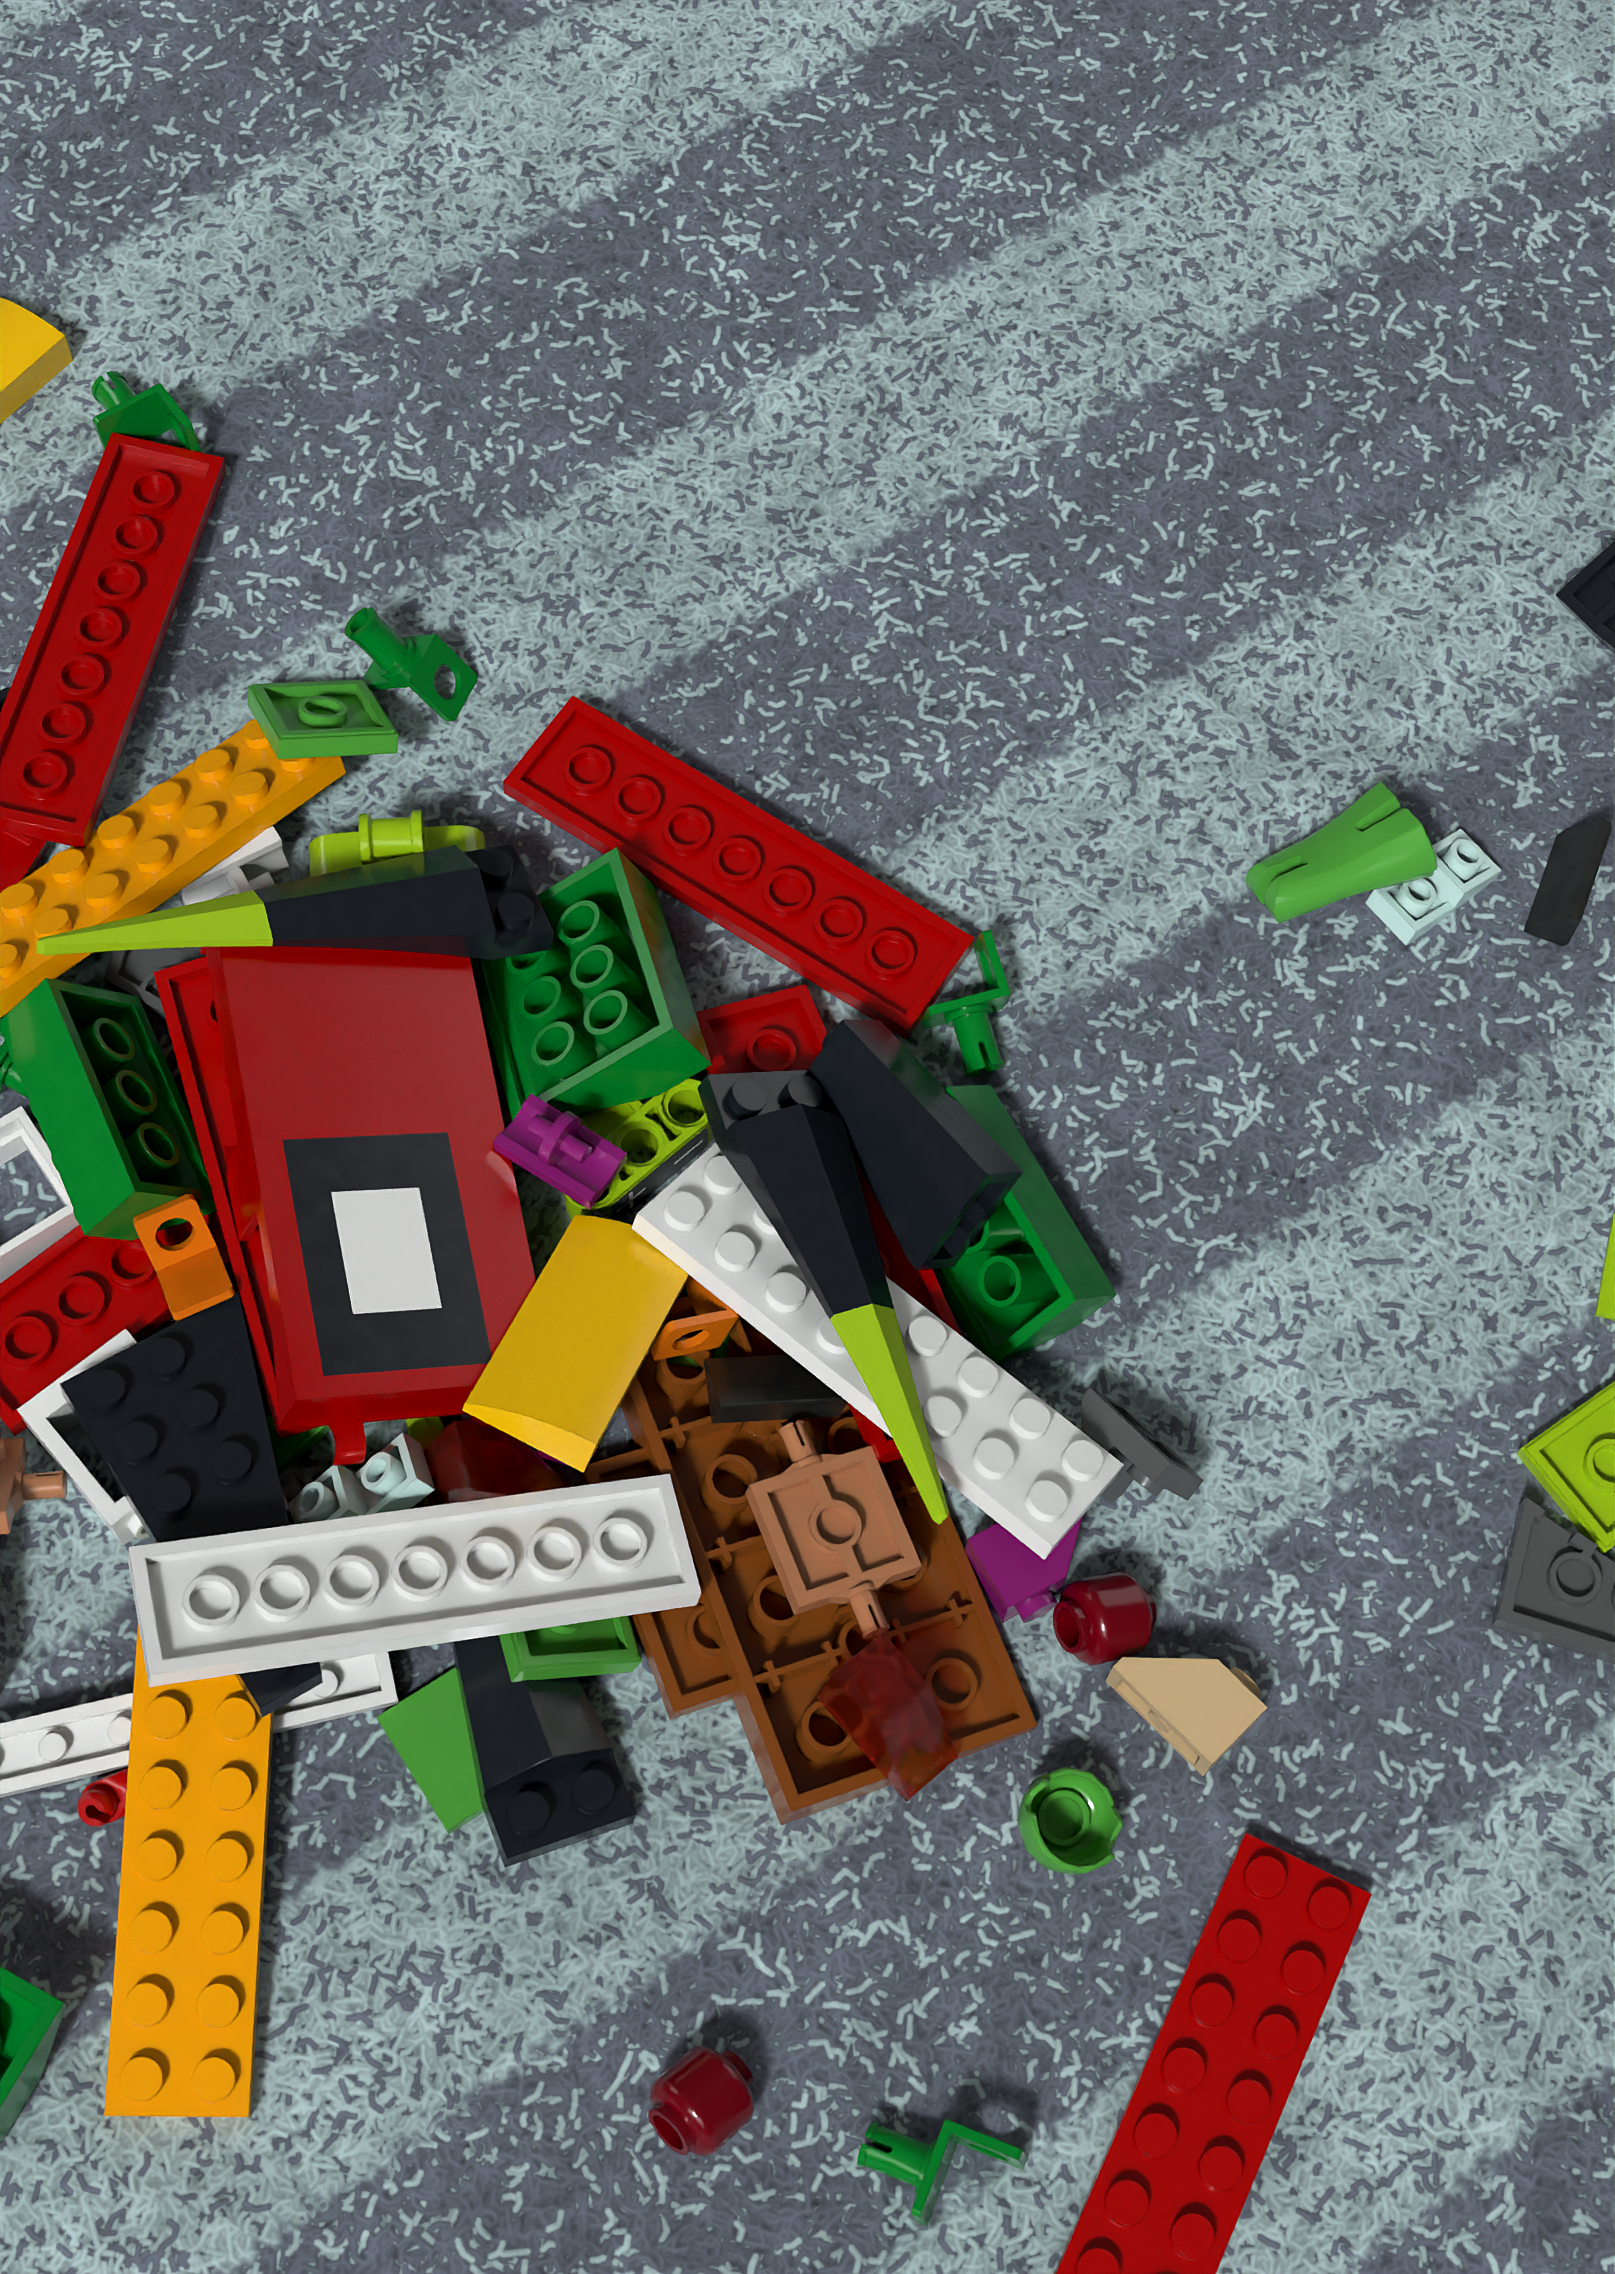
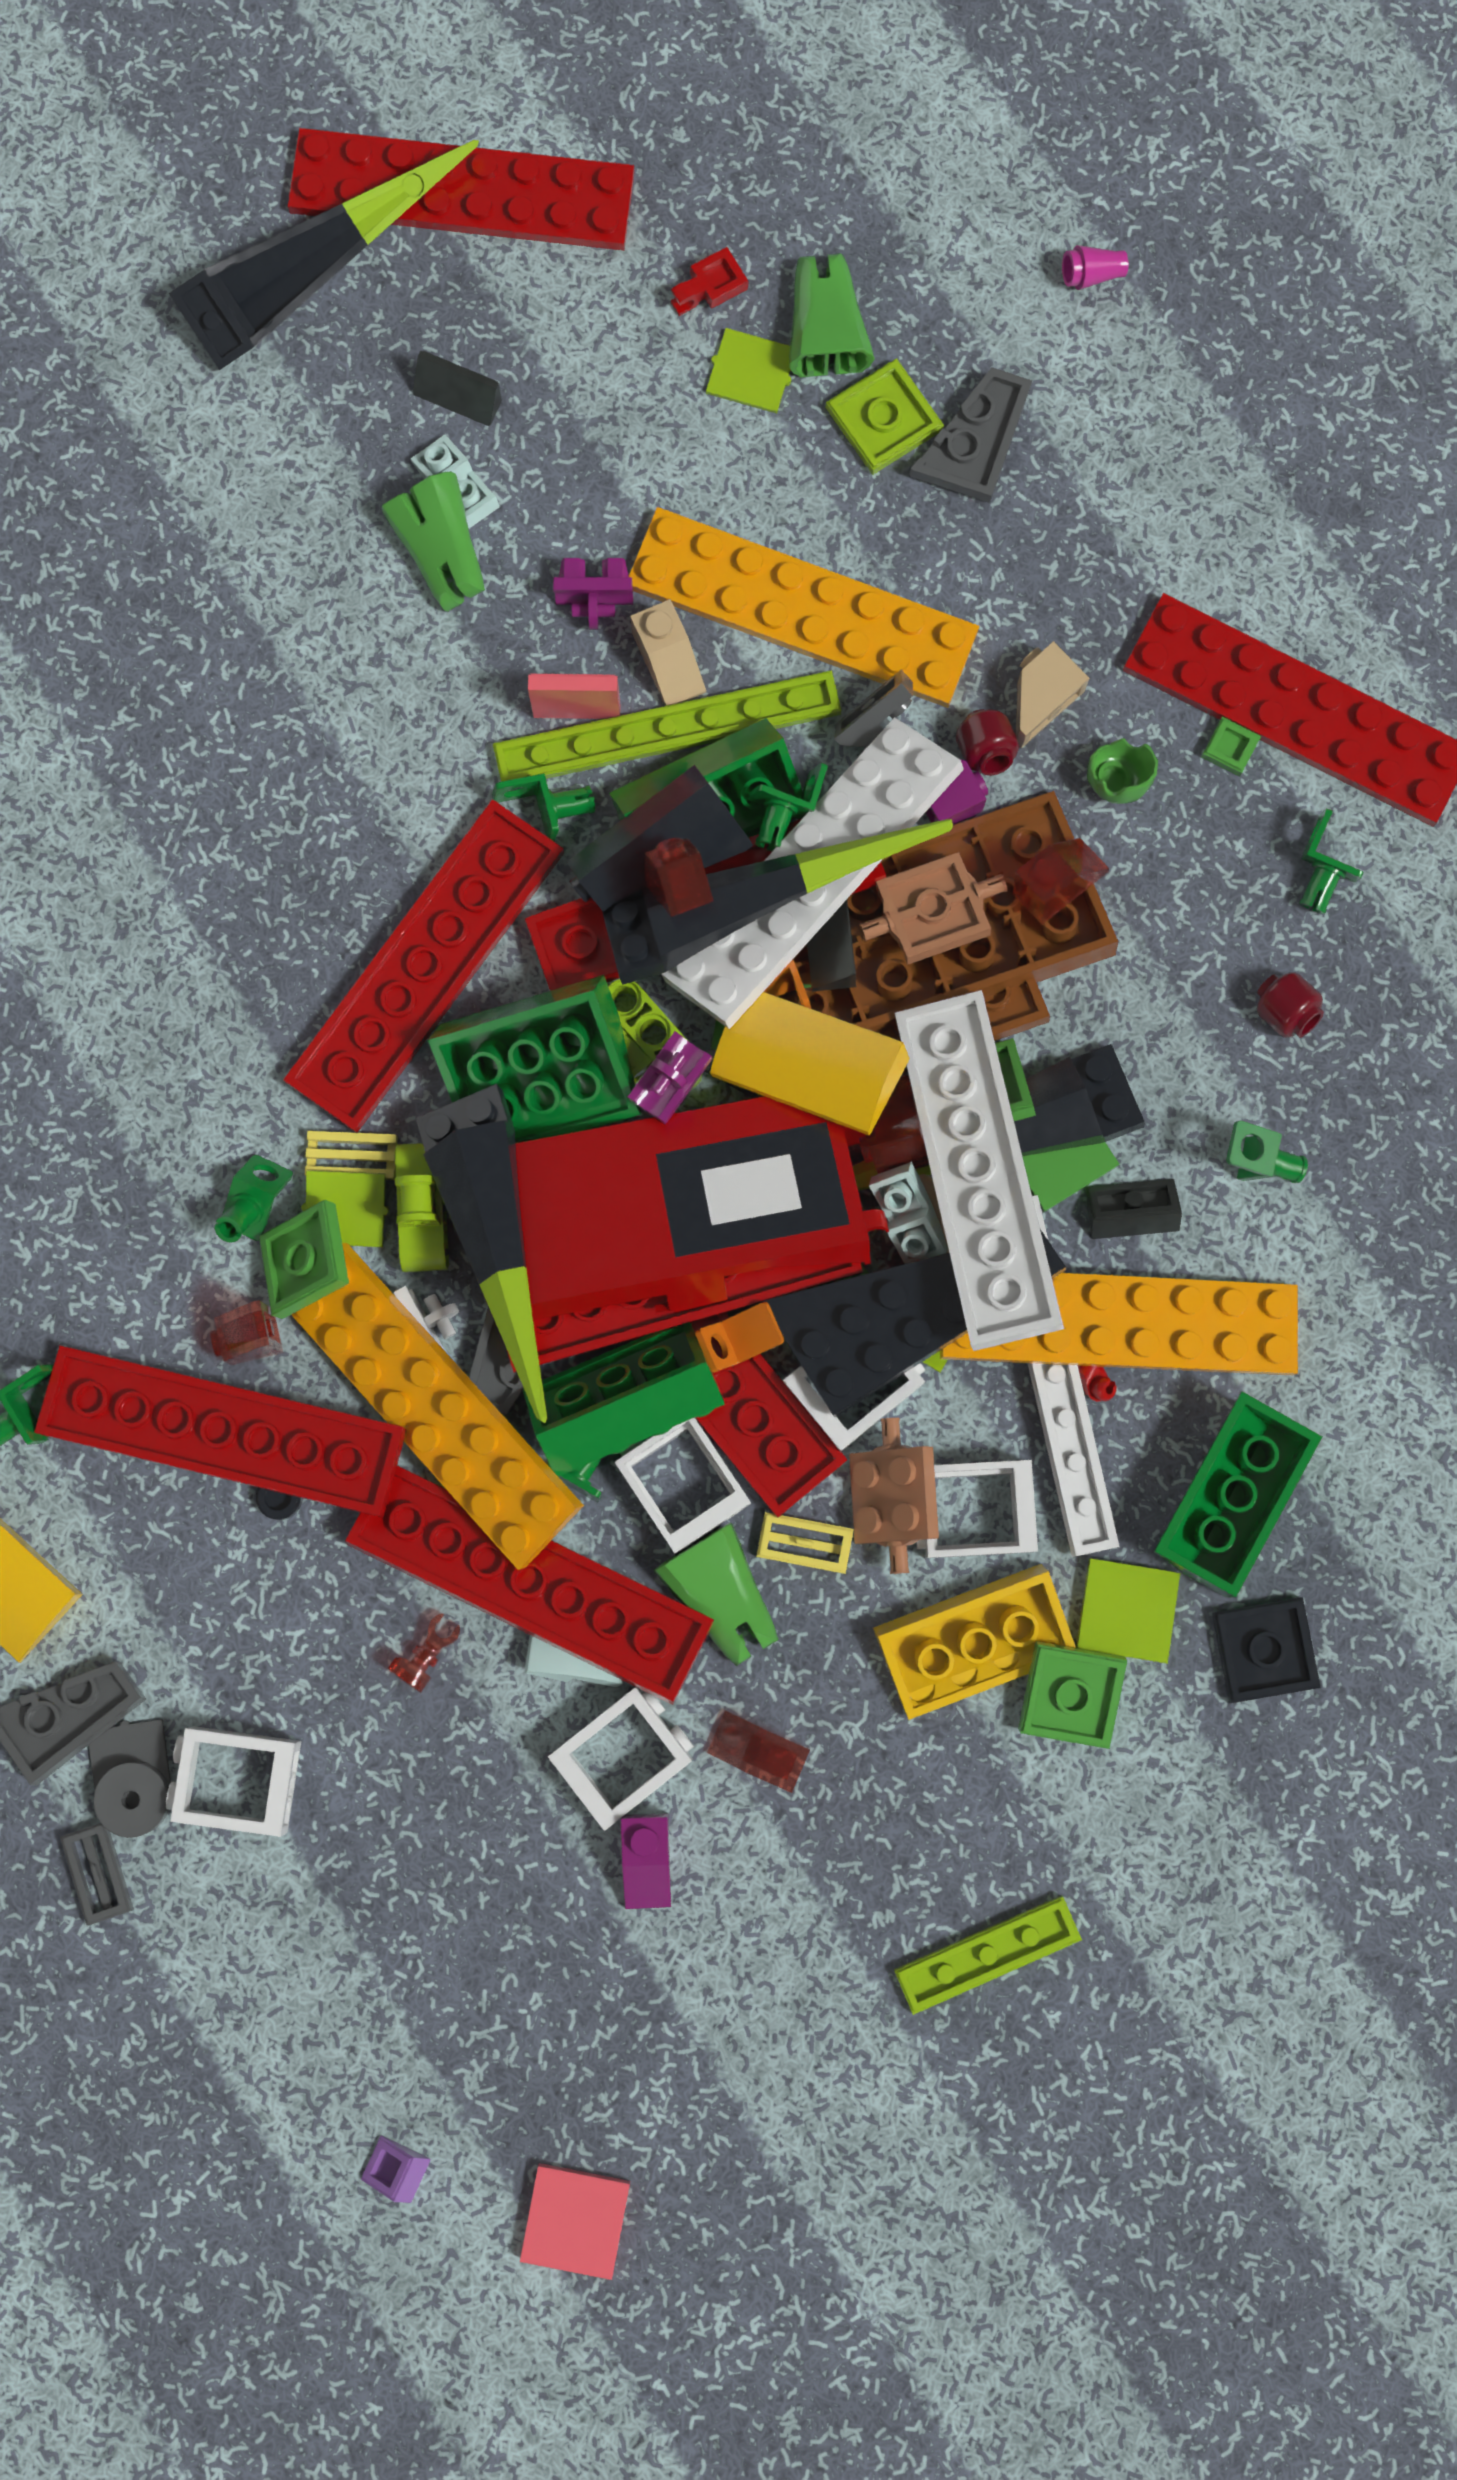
camera: 85 degrees left, 15 degrees up
(224, 665) = (246, 1334): none -> clear red slope
(380, 1856) = (1133, 1208): none -> pearl dark grey slope
(404, 780) = (358, 1203): none -> lime piece
(449, 2051) = (1262, 1155): none -> green bracket
(475, 743) = (313, 1153): none -> light yellow tile
(842, 1132) = (677, 876): none -> clear red slope
(969, 1306) = (782, 807): none -> green bracket
(1100, 1178) = (667, 728): none -> lime tile
(1125, 1028) = (574, 696): none -> coral tile
(1129, 2009) = (1230, 746): none -> bright green tile
(1206, 1161) = (667, 653): none -> tan slope
(1293, 1039) = (593, 595): none -> magenta hips
(1295, 1361) = (801, 606): none -> light orange plate

